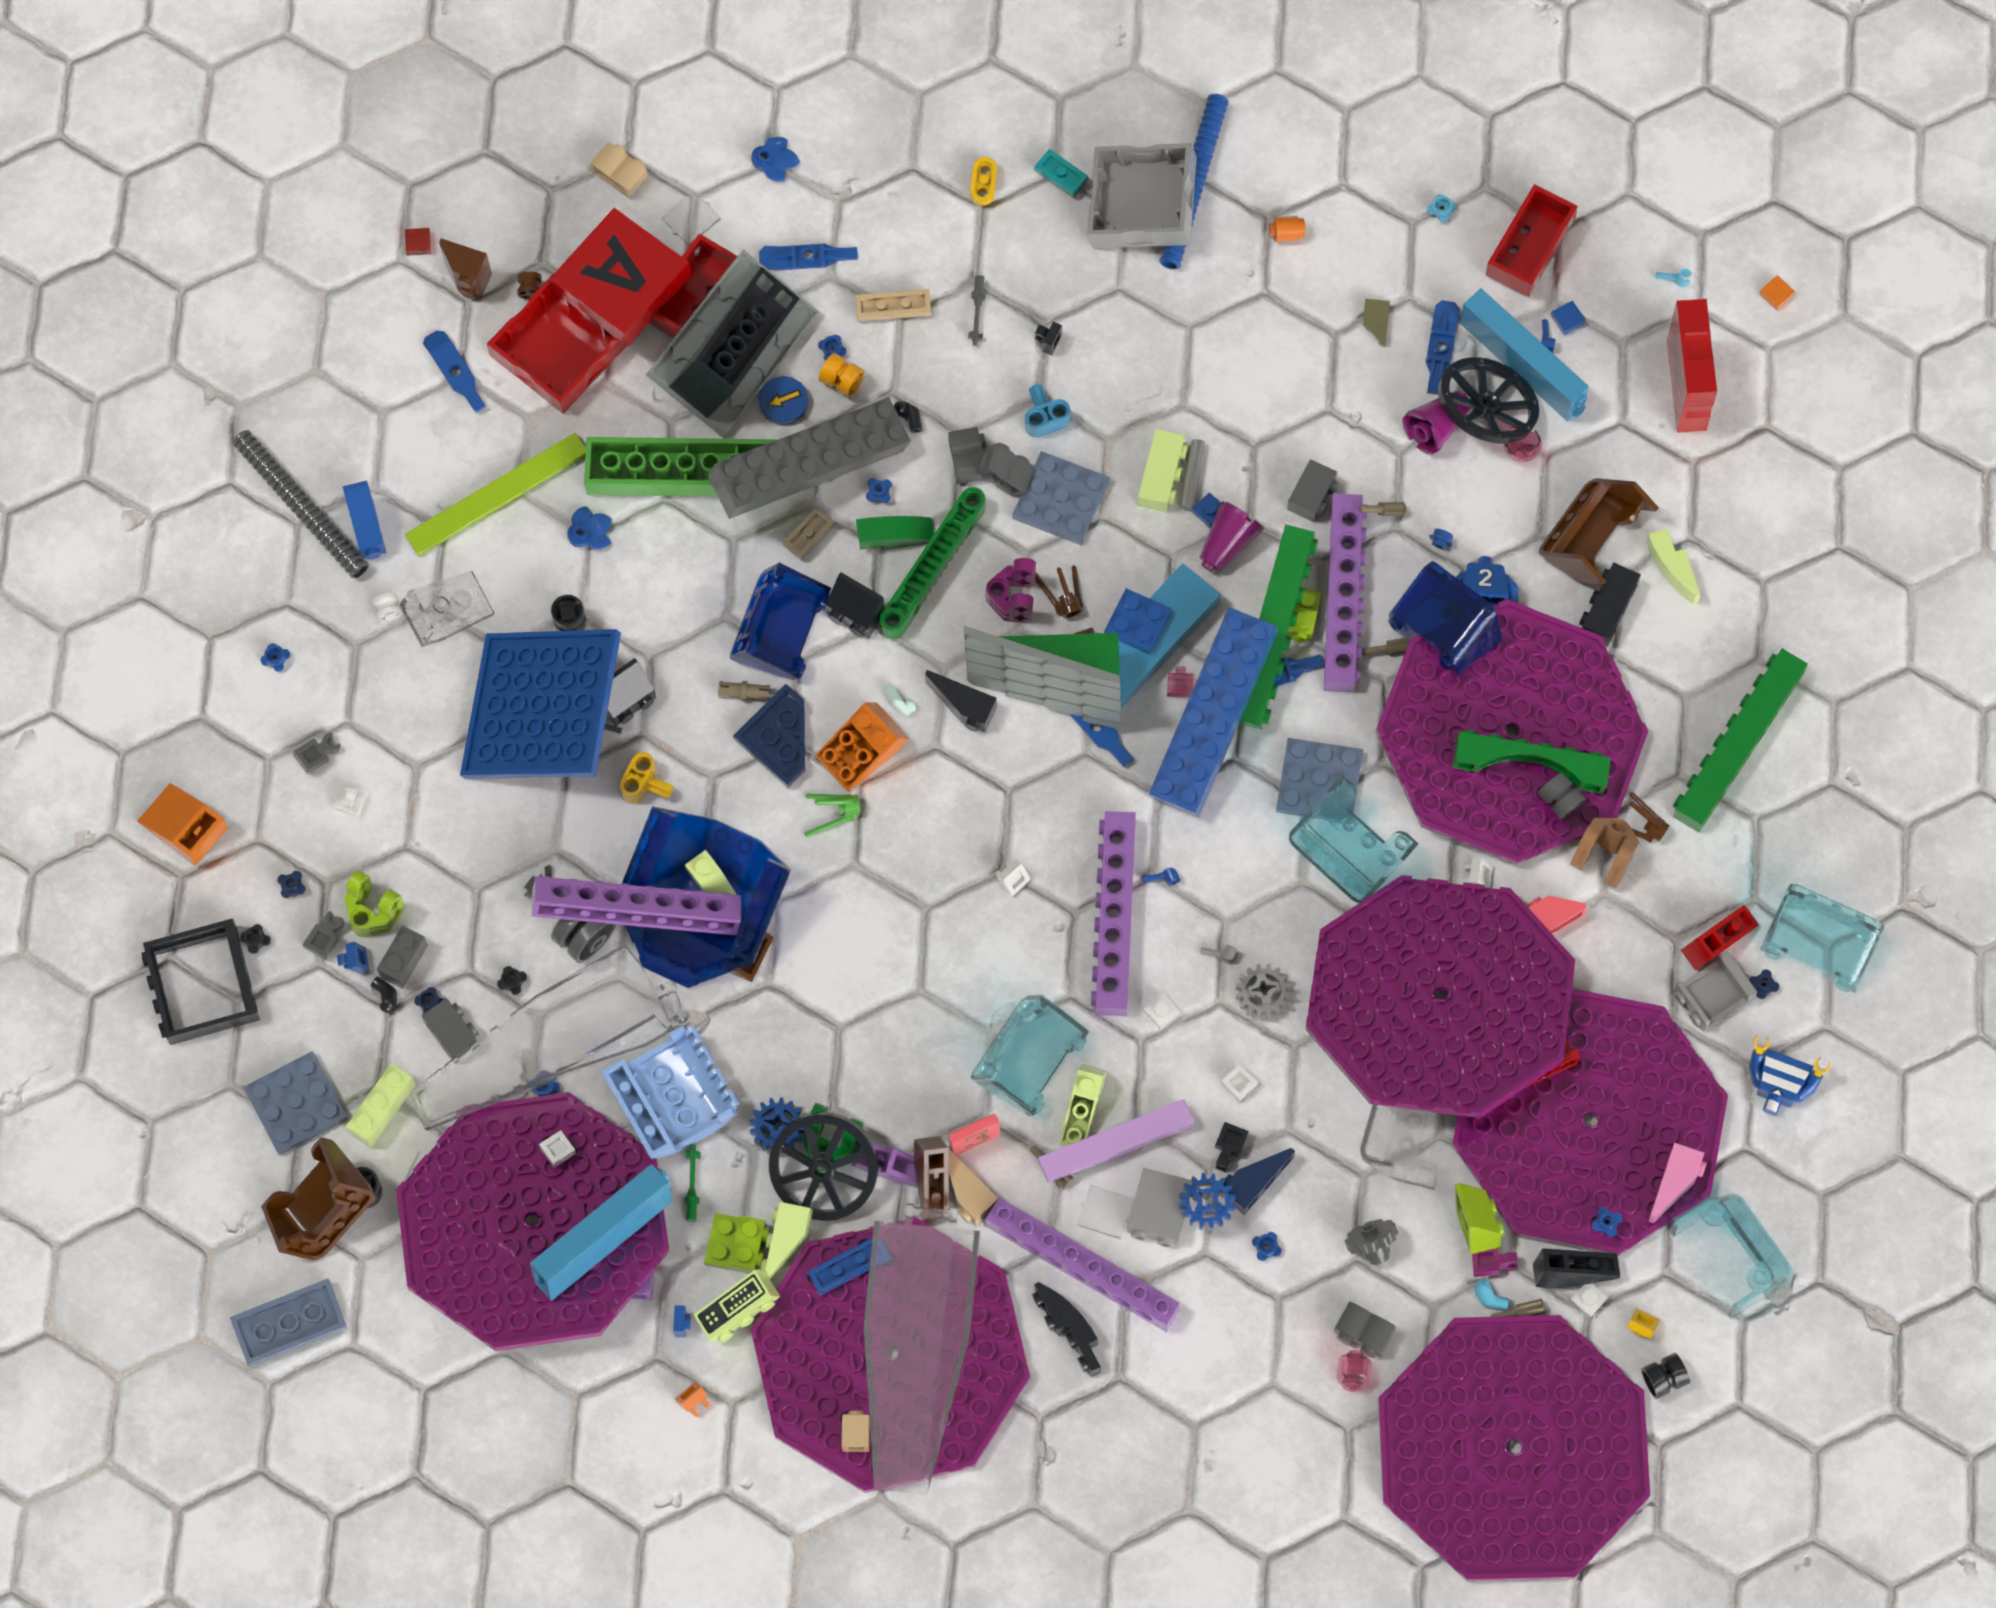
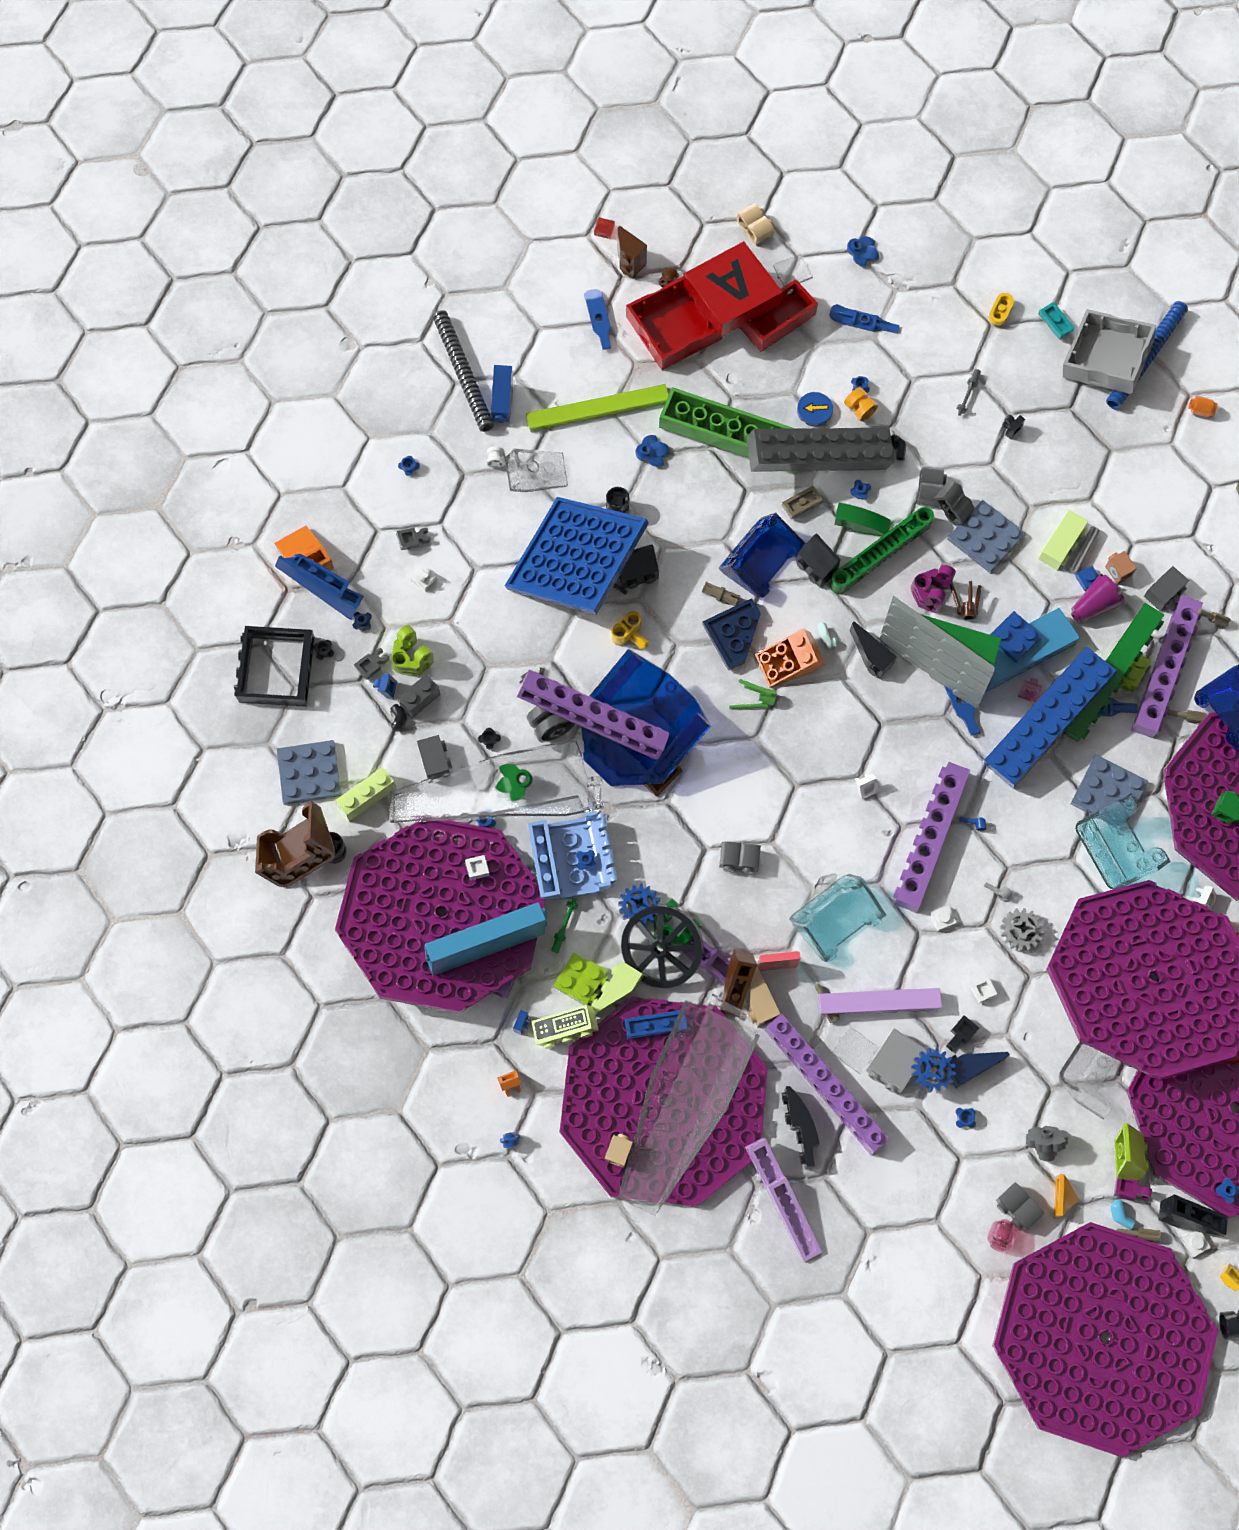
camera: 15 degrees right, 0 degrees up
(222, 853) = (321, 583): none -> blue wedge
(288, 1322) = (244, 925): sand blue plate -> none
(429, 994) = (424, 729): dark blue plate -> none
(560, 1026) = (511, 781): none -> green plate
(690, 1099) = (590, 864): none -> blue plate
(708, 874) = (651, 710): yellowish green slope -> none
(717, 1467) = (510, 1140): none -> blue plate
(732, 343) = (793, 358): piece -> none
(883, 1022) = (739, 857): none -> dark grey brick
(893, 305) = (911, 370): tan plate -> none
(1044, 412) = (994, 474): dark azure beam -> none
(1076, 1420) = (783, 1199): none -> lavender slope
(1083, 1104) = (864, 966): yellowish green slope -> none
(1245, 481) = (1120, 567): none -> nougat brick
(1416, 1298) = (1064, 1196): none -> light orange slope

